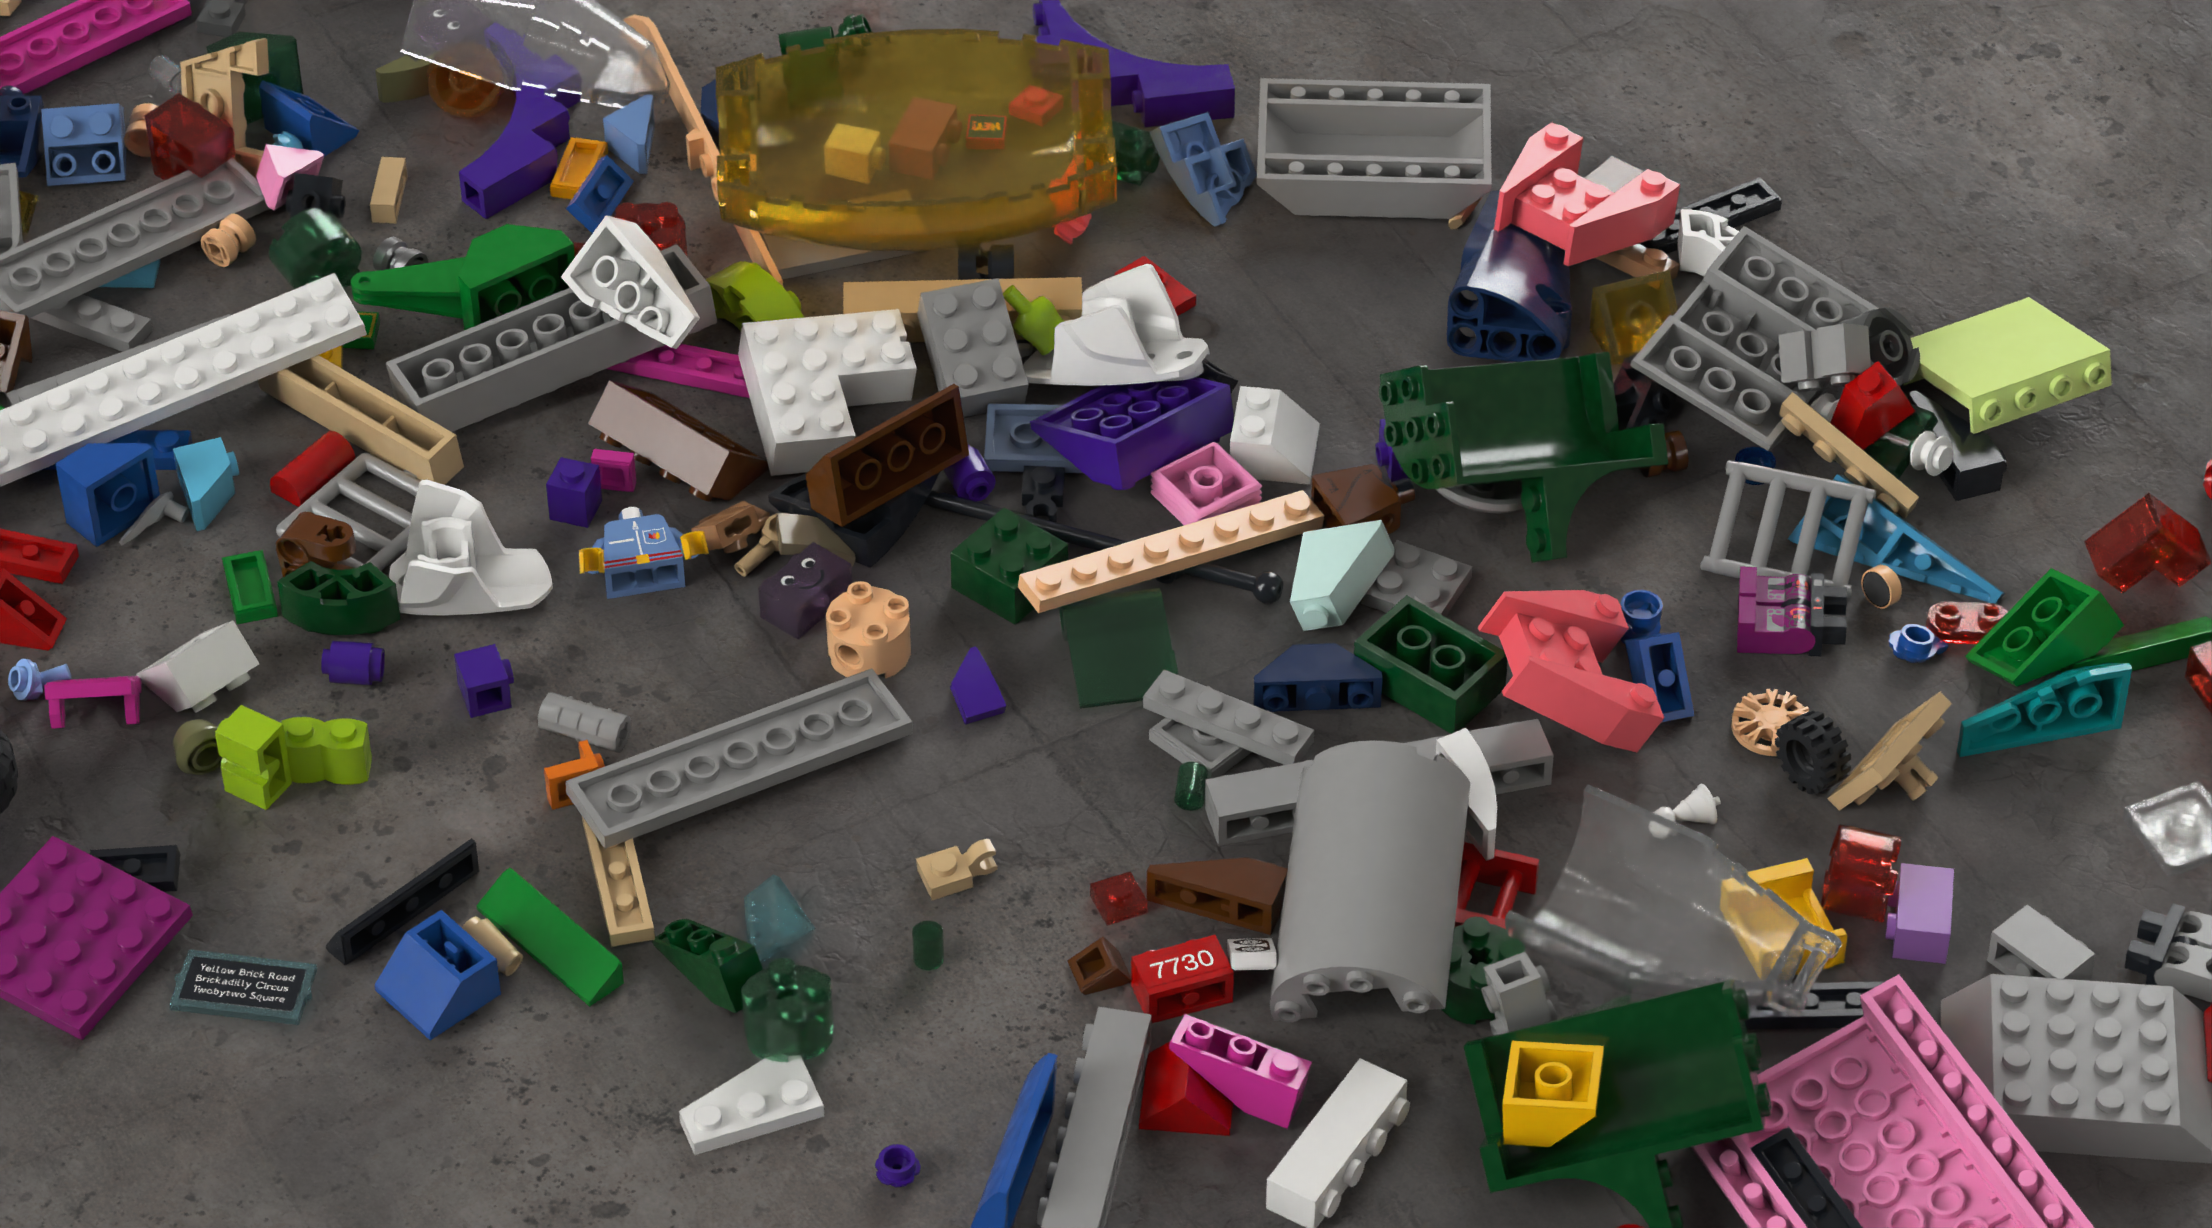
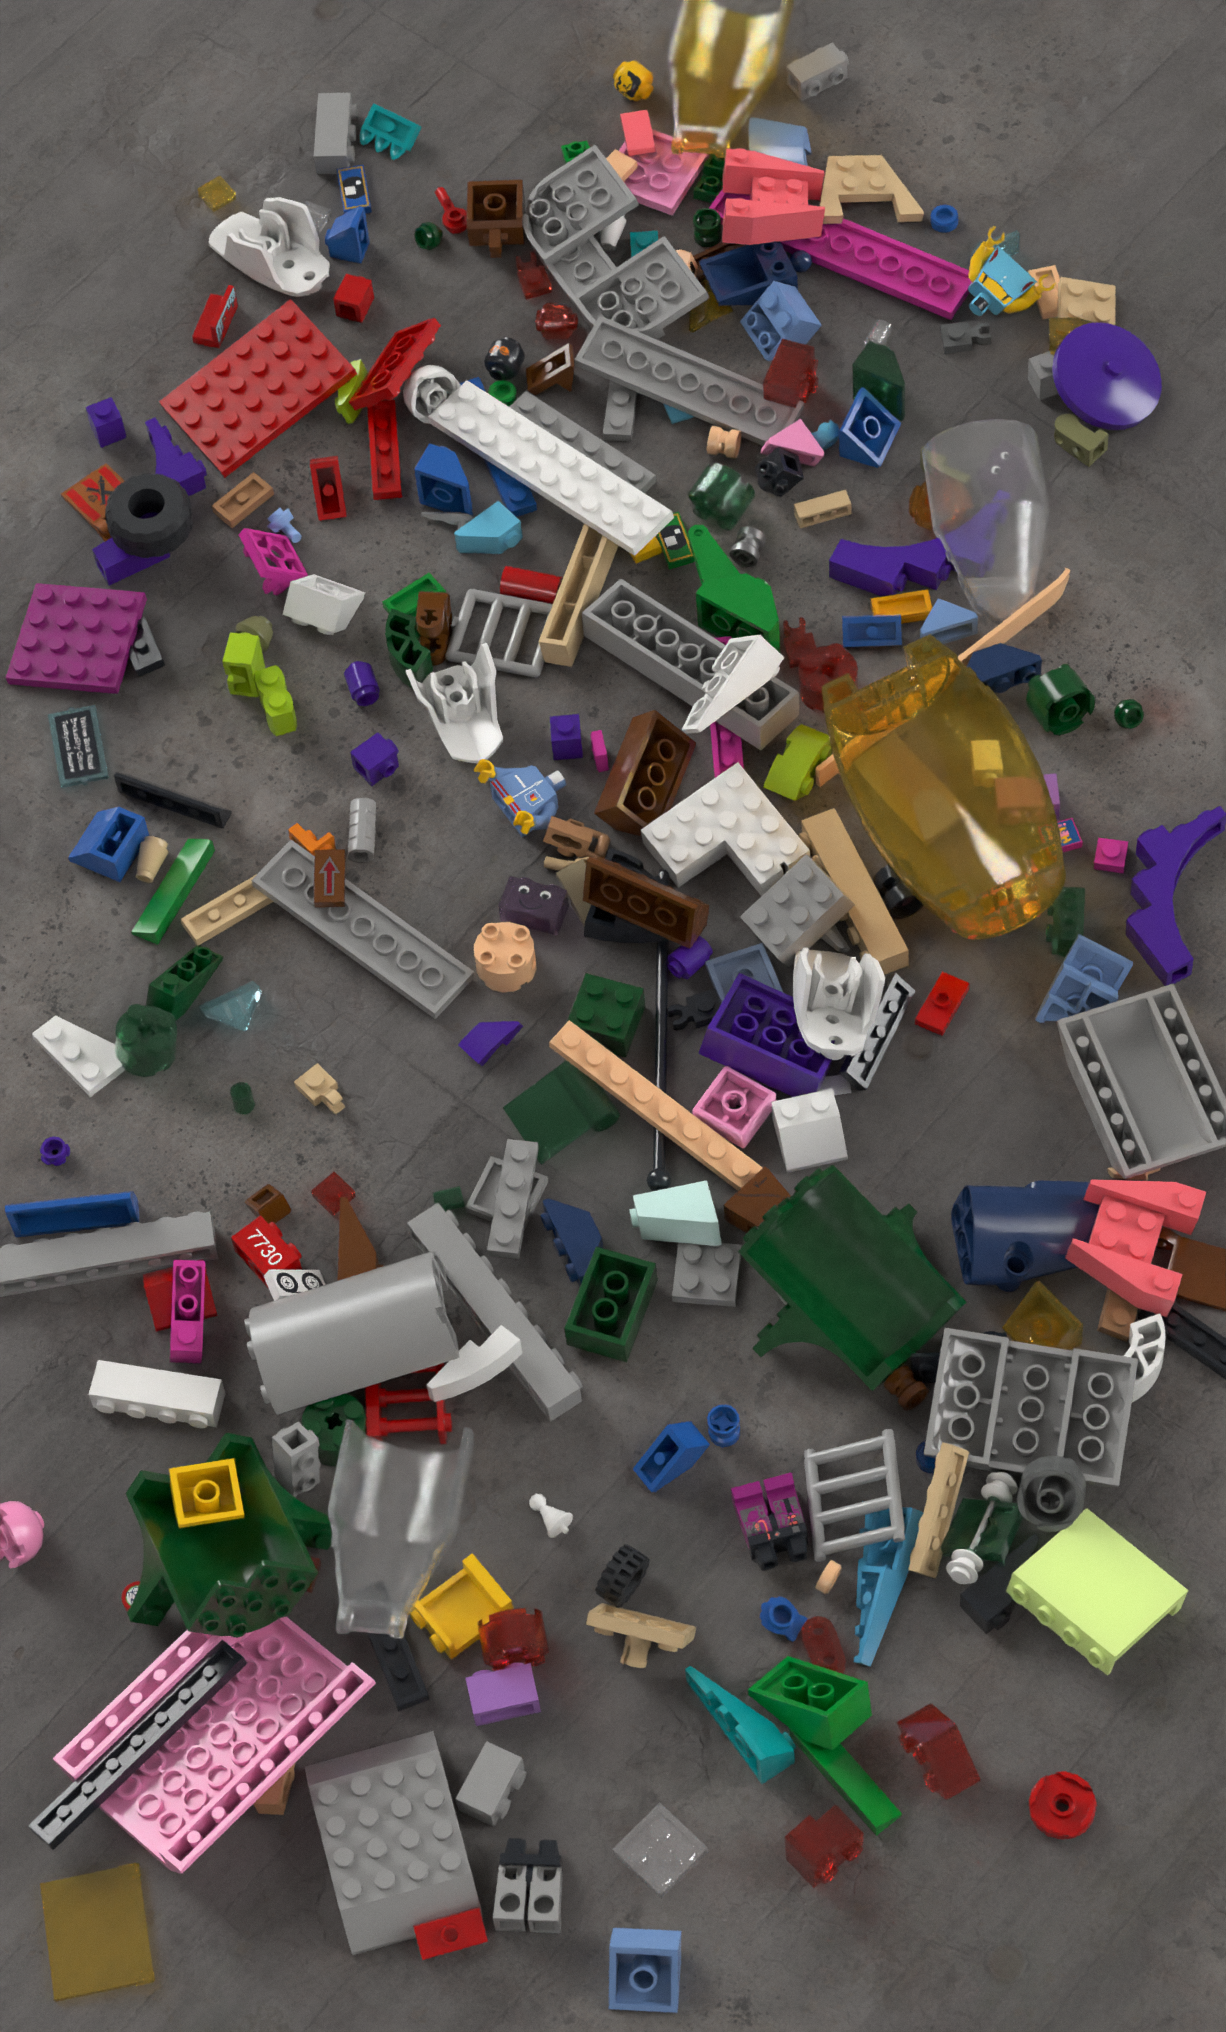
camera: 75 degrees right, 15 degrees up
(136, 134) = (819, 342): light nougat wheel -> none
(219, 87) = (829, 385): tan wing -> none
(654, 755) = (329, 878): none -> reddish brown tile
(1035, 319) = (842, 939): lime piece -> none
(1554, 658) = (631, 1380): coral wedge -> none
(1764, 719) = (663, 1543): light nougat wheel -> none
(1824, 355) = (1013, 1457): light grey brick -> none
(1870, 406) = (989, 1511): red slope -> none

